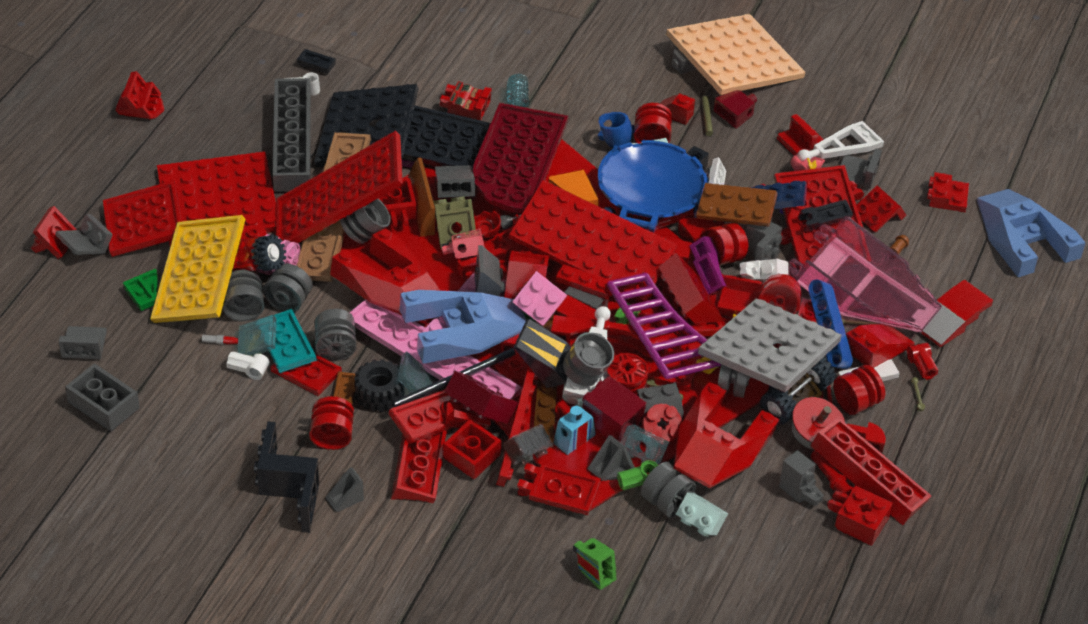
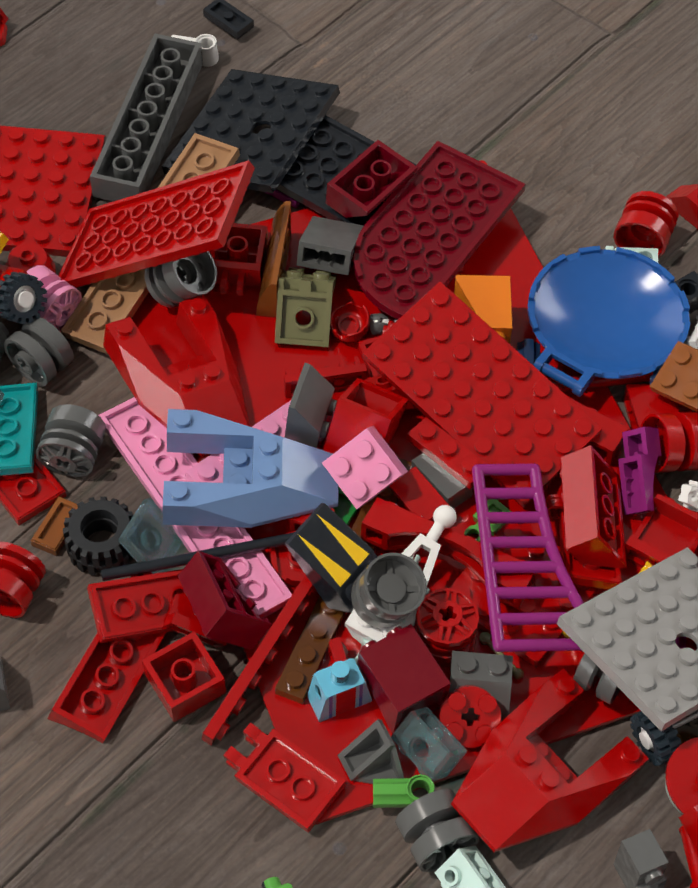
camera: 20 degrees right, 10 degrees up
(465, 136) = (368, 180): none -> dark red slope
(466, 100) = (404, 123): red hips -> none
(471, 241) = (308, 346): coral torso -> none
(518, 90) = (478, 127): clear light blue piece -> none
(527, 445) = (258, 698): clear smoke brick -> none
(619, 132) = (592, 225): blue piece -> none

